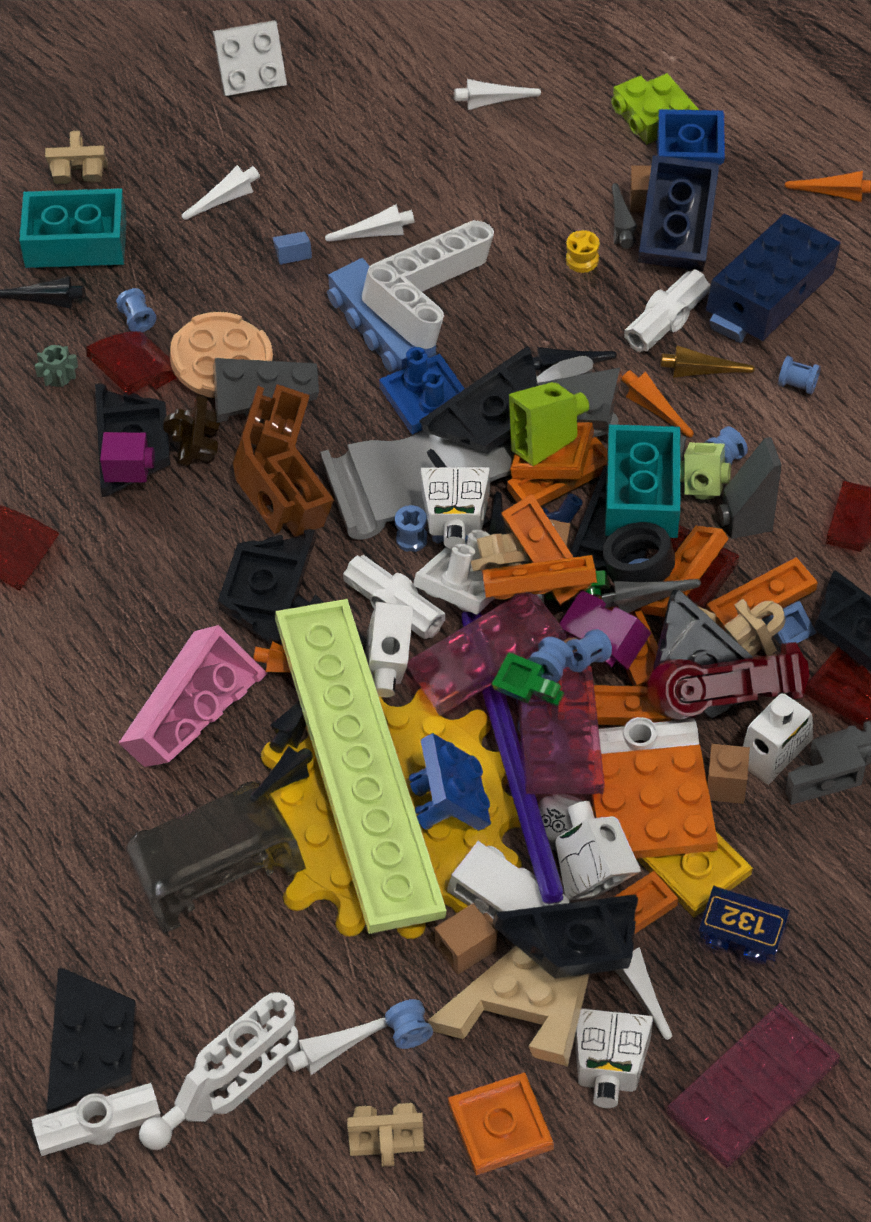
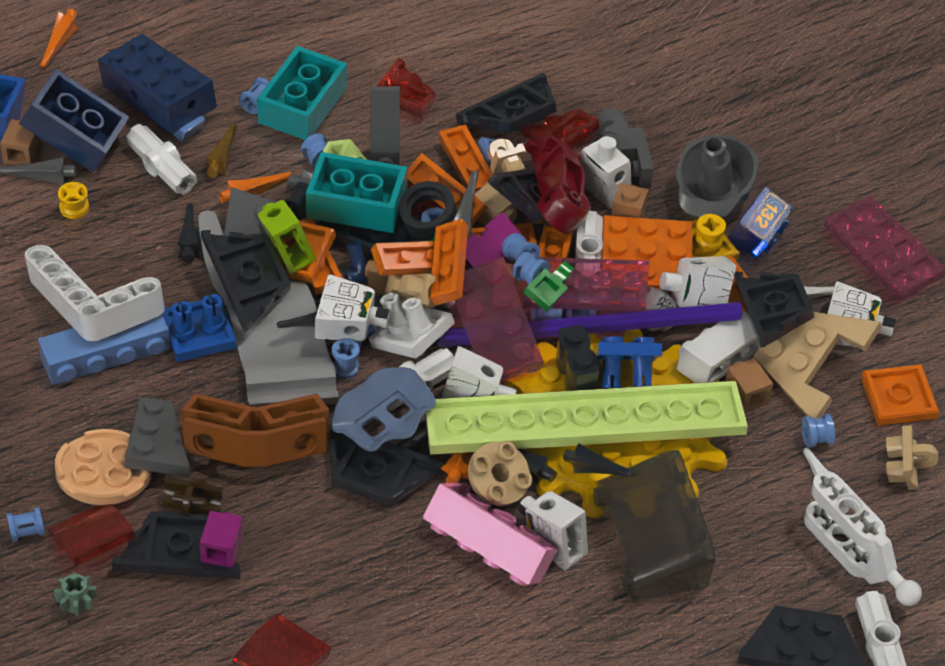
camera: 85 degrees left, 5 degrees down
(198, 757) = (558, 523): none -> white torso
(258, 687) = (499, 473): none -> tan plate
(328, 544) = (372, 400): none -> sand blue piece
(452, 723) = (577, 359): none -> black brick
(700, 873) = (710, 232): none -> yellow wheel
(799, 856) = (715, 175): none -> dark grey piece
(808, 411) = (302, 93): none -> teal brick

